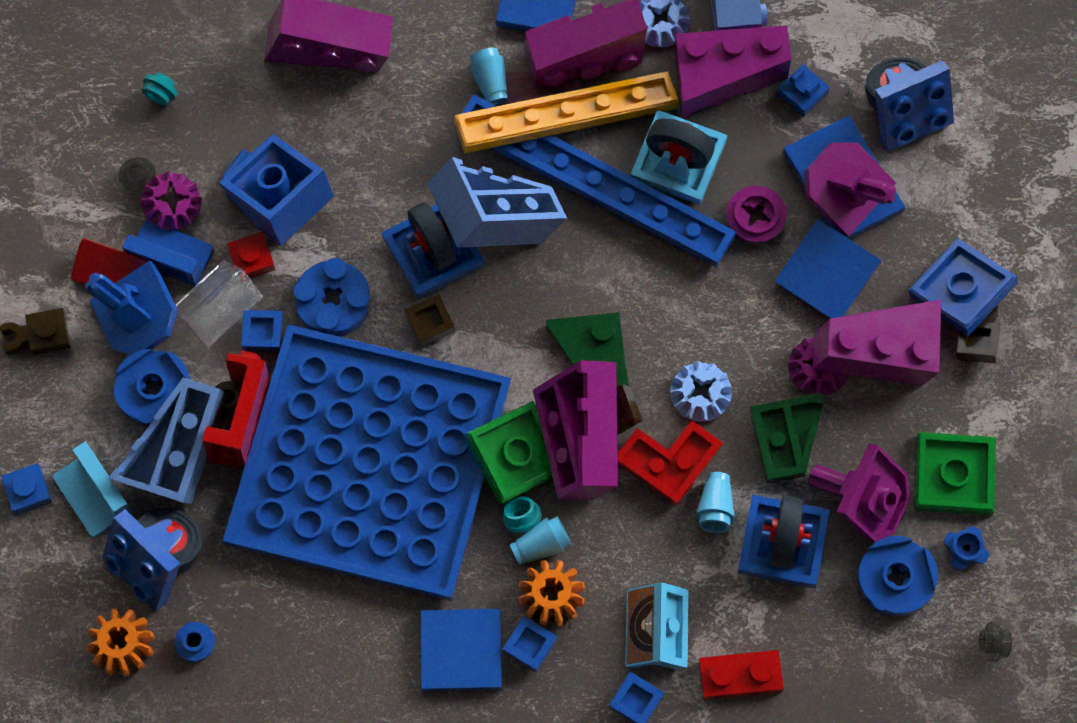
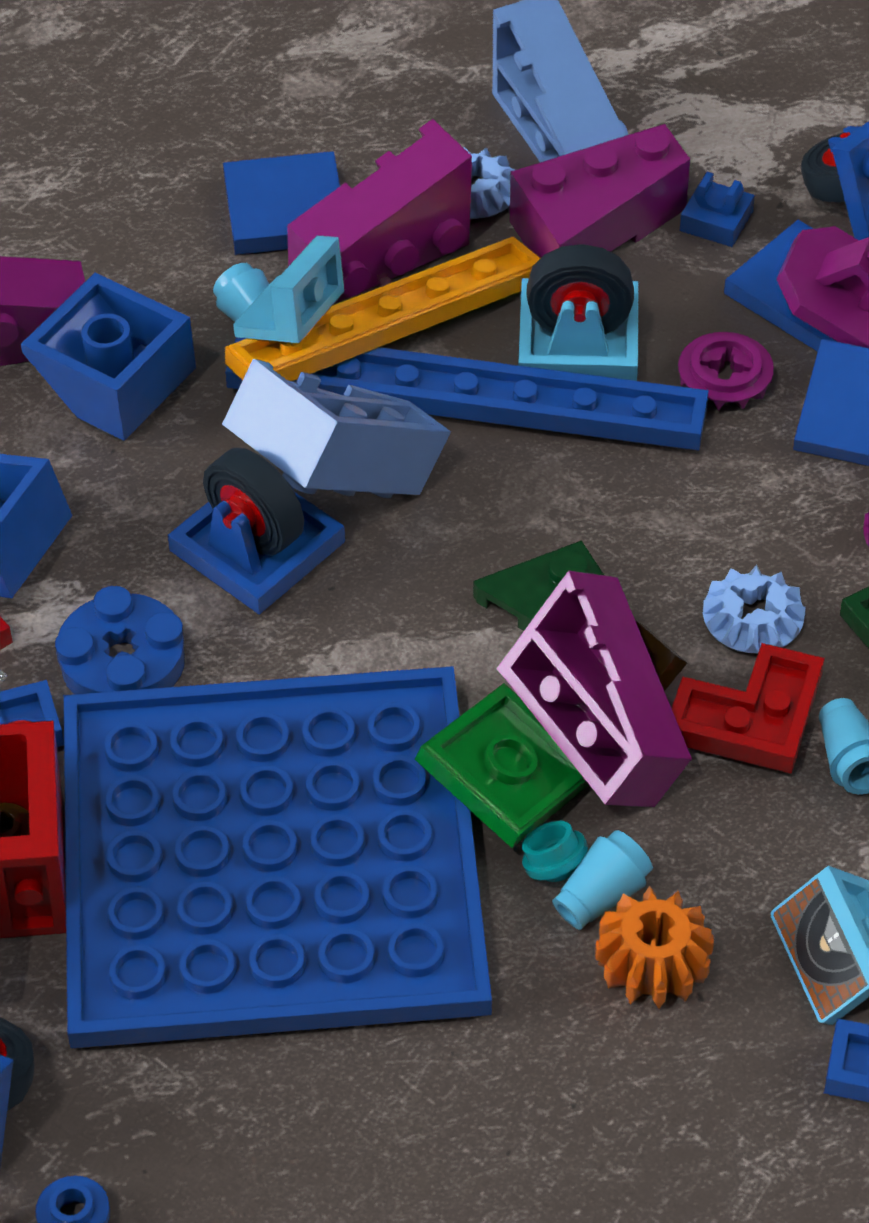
camera: 20 degrees left, 20 degrees down
(389, 92) = (112, 354): none -> blue slope
(429, 320) = (290, 631): dark brown plate -> none
(461, 650) = (539, 1083): blue tile -> none
(507, 92) = (297, 296): none -> medium azure panel
(529, 644) = (651, 1034): blue plate -> none

